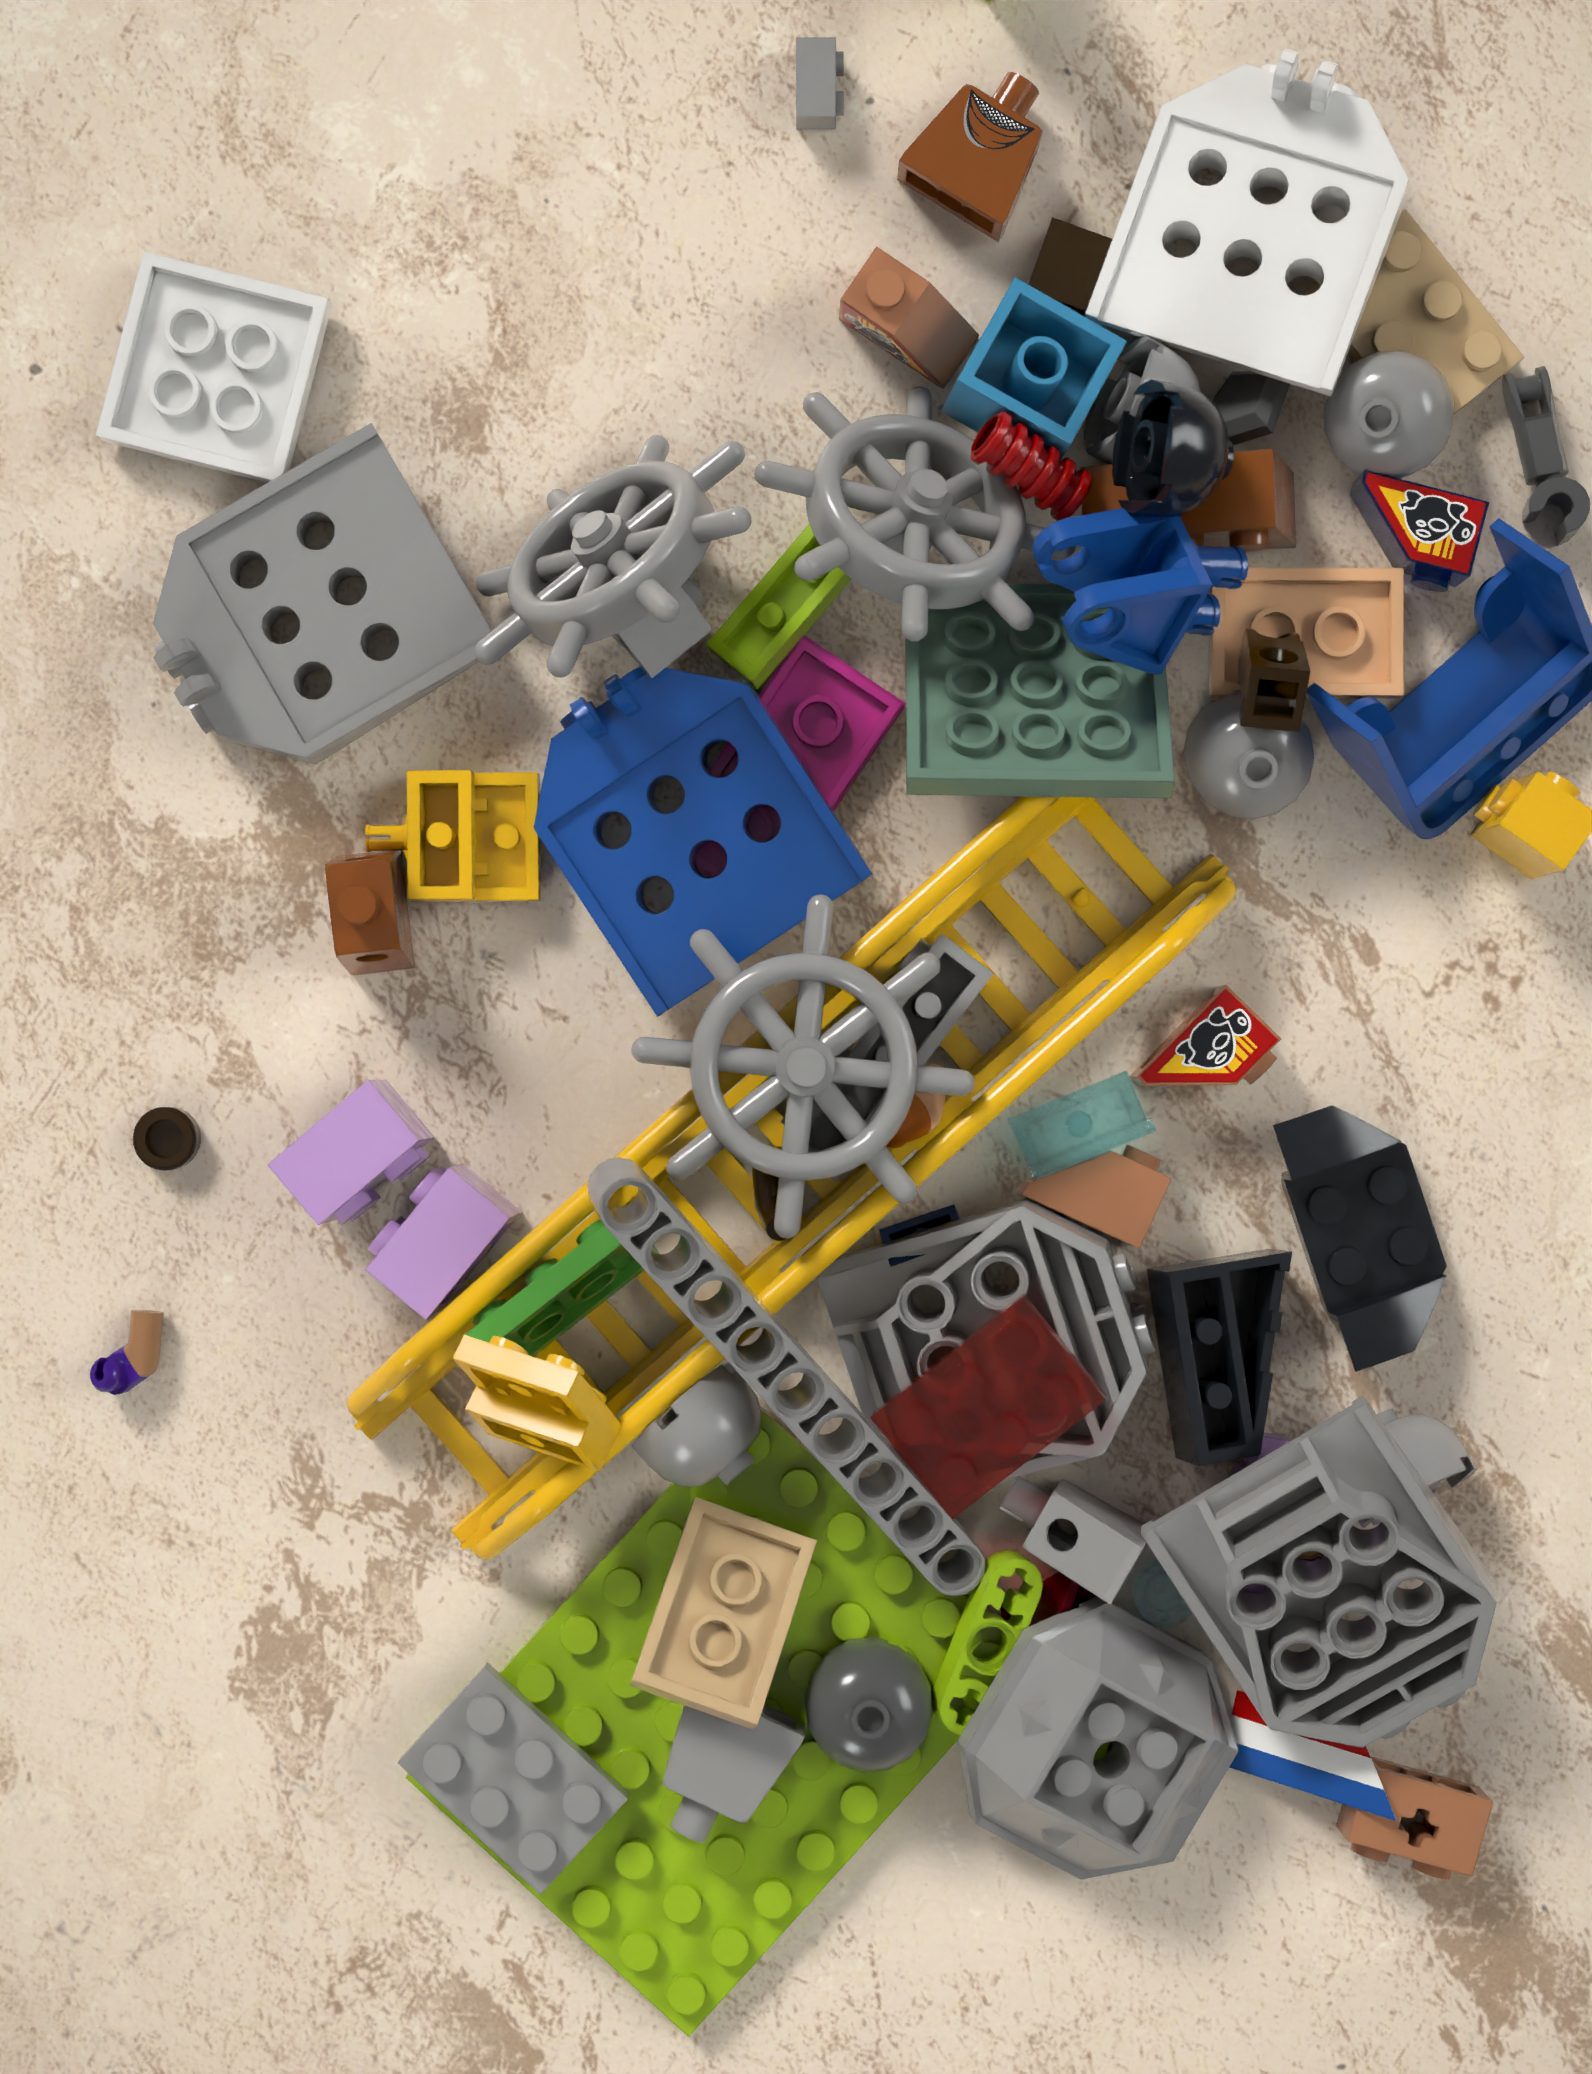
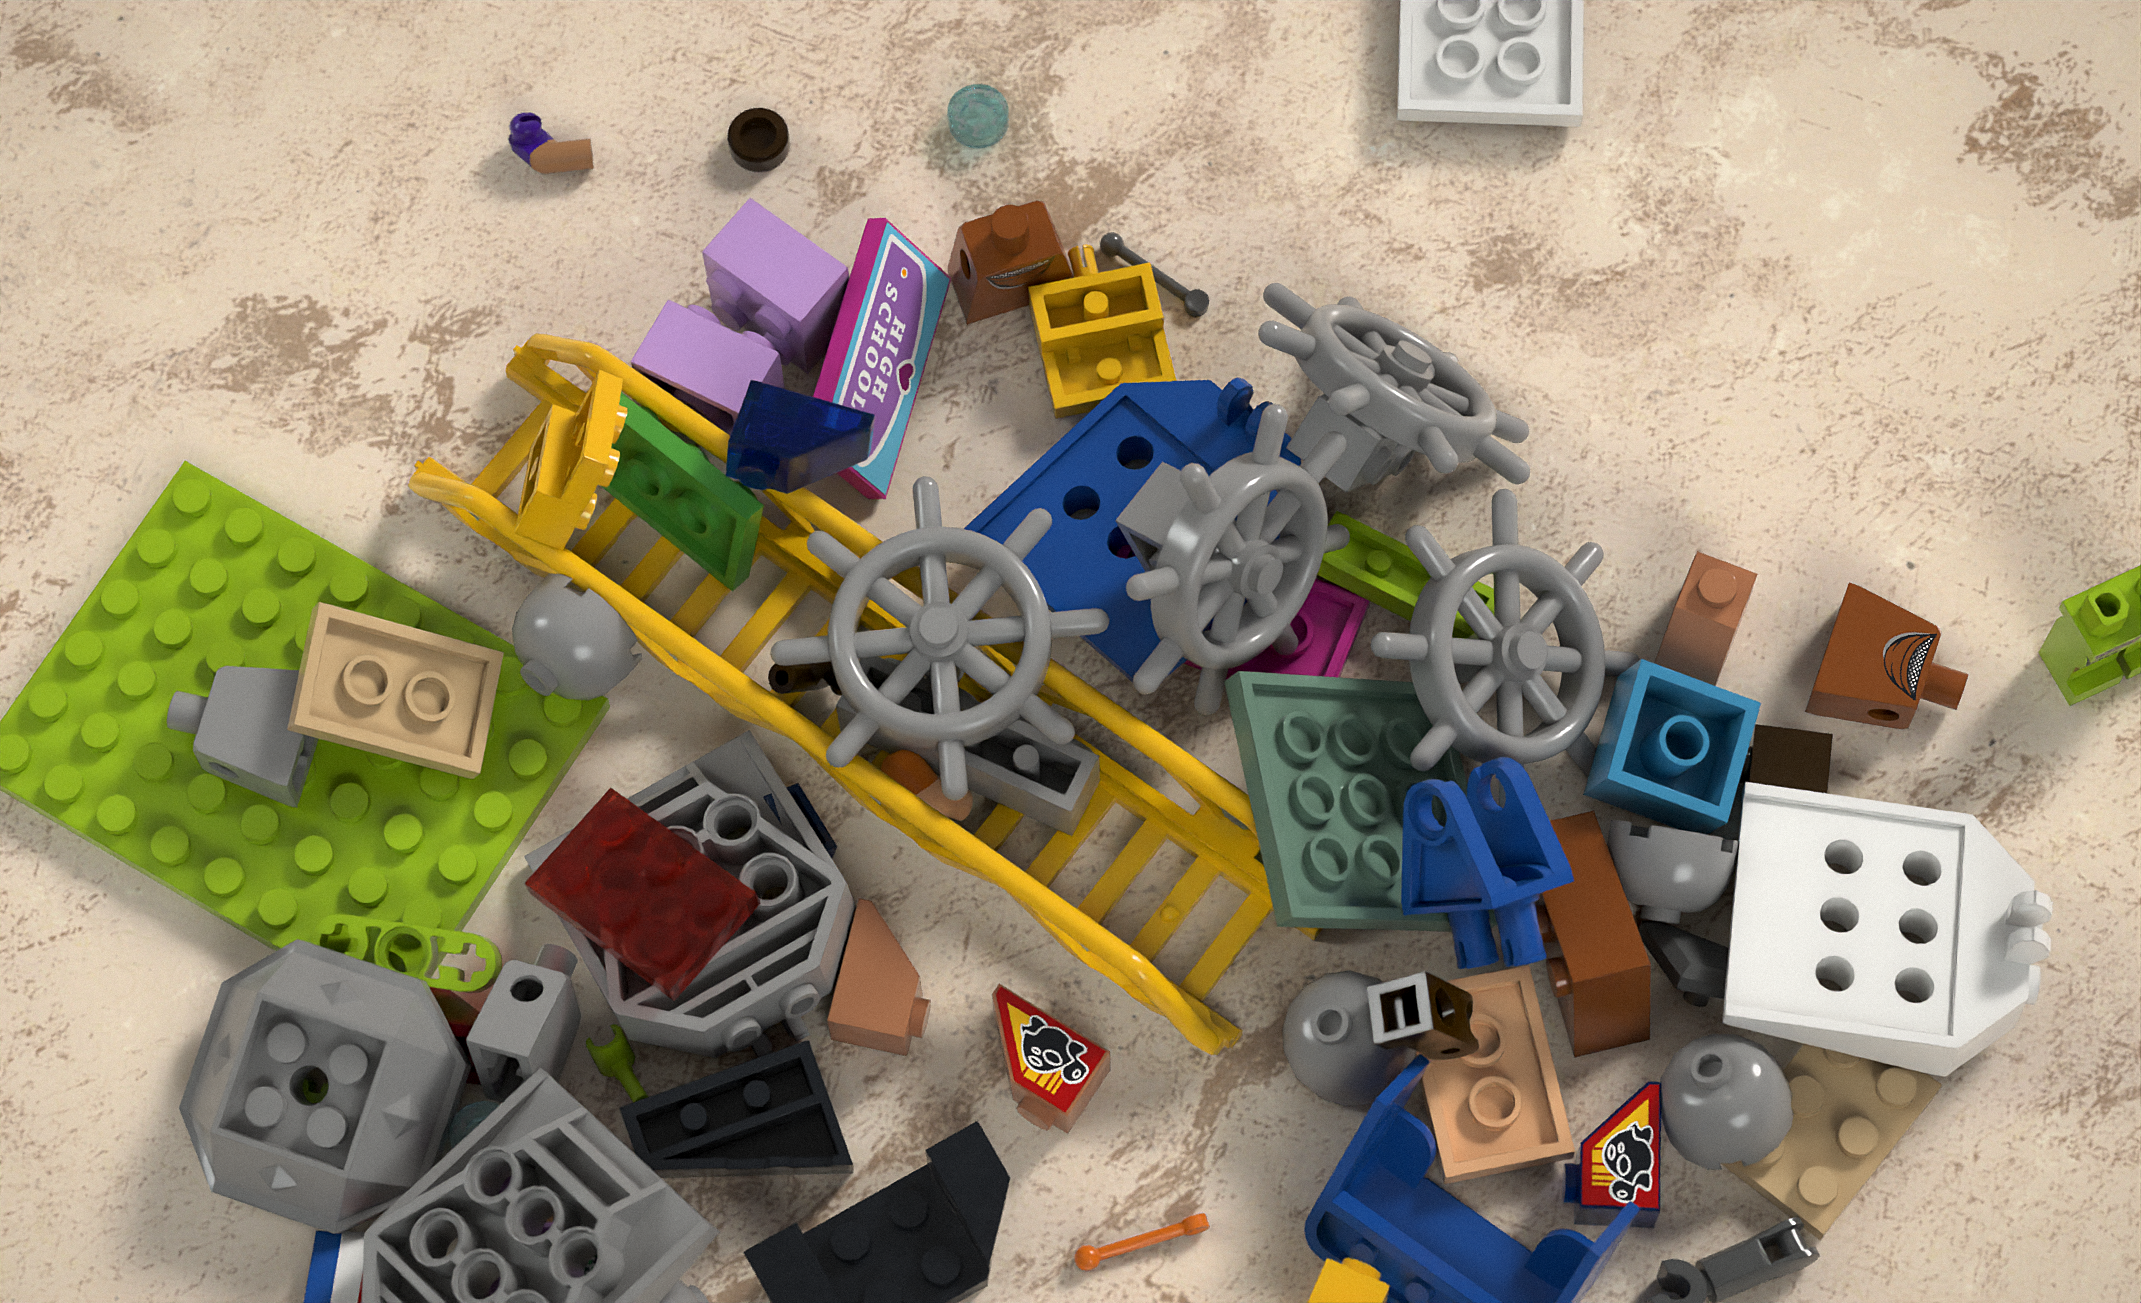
camera: 80 degrees right, 20 degrees down
(189, 910) = (978, 116): none -> clear light blue tile
(222, 632) = (1246, 88): light grey hinge -> none
(441, 735) = (1195, 301): none -> dark grey hinge
(452, 1068) = (883, 344): none -> tile
(513, 1778) = (201, 548): light grey plate -> none
(554, 1173) = (794, 439): none -> clear blue slope
(773, 1358) = (661, 678): light grey beam -> none
(782, 762) = (1207, 562): none -> light grey piece
(816, 83) = (1910, 507): light grey piece -> none
(868, 1704) = (325, 855): dark grey cylinder -> none
(1031, 466) = (1578, 752): red piece -> none
(1080, 1125) = (943, 955): clear light blue panel -> none
(1121, 1452) = (617, 1060): none -> lime hand
(1170, 451) = (1619, 865): black cylinder -> none
(1398, 1045) = (1088, 1257): none -> orange hinge

